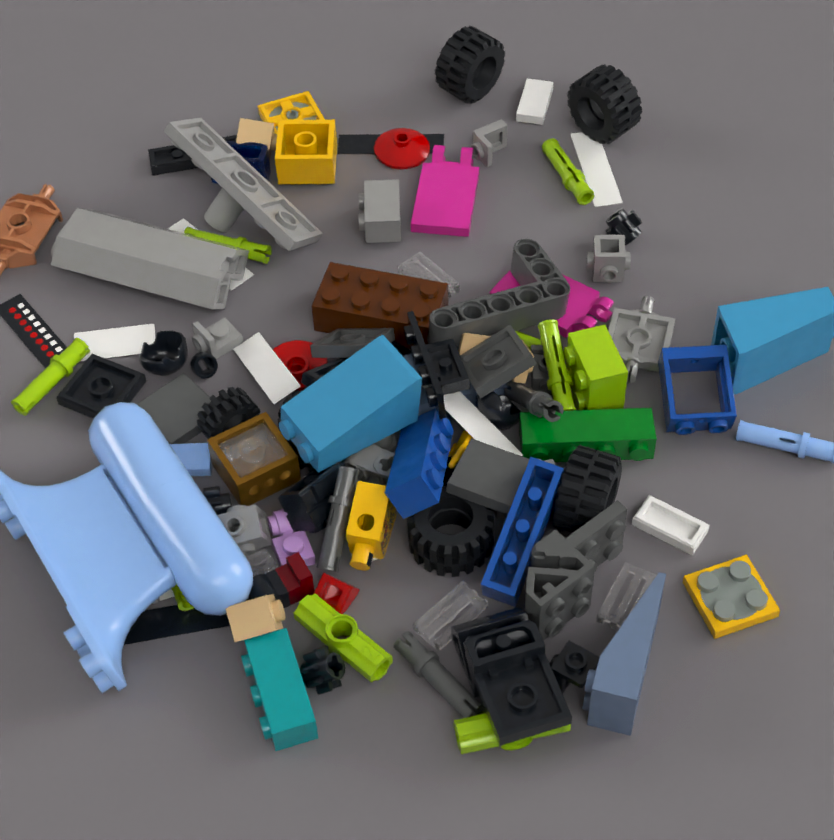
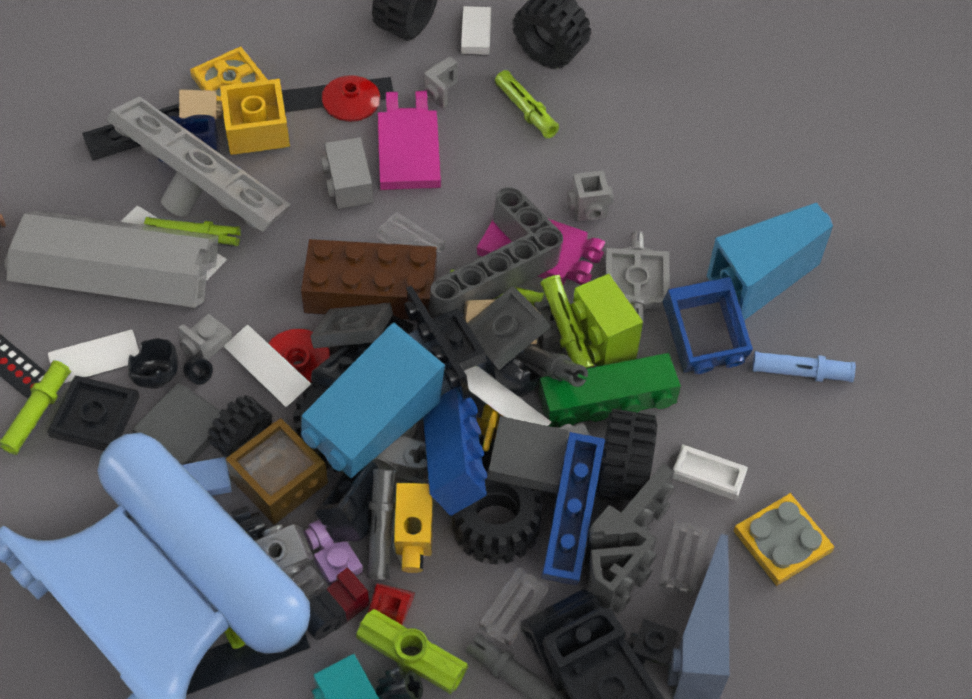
camera: 15 degrees left, 5 degrees up
(255, 617) = (320, 648): tan brick -> none
(596, 170) = (553, 97): white sticker -> none
(624, 224) = (596, 157): black gear -> none

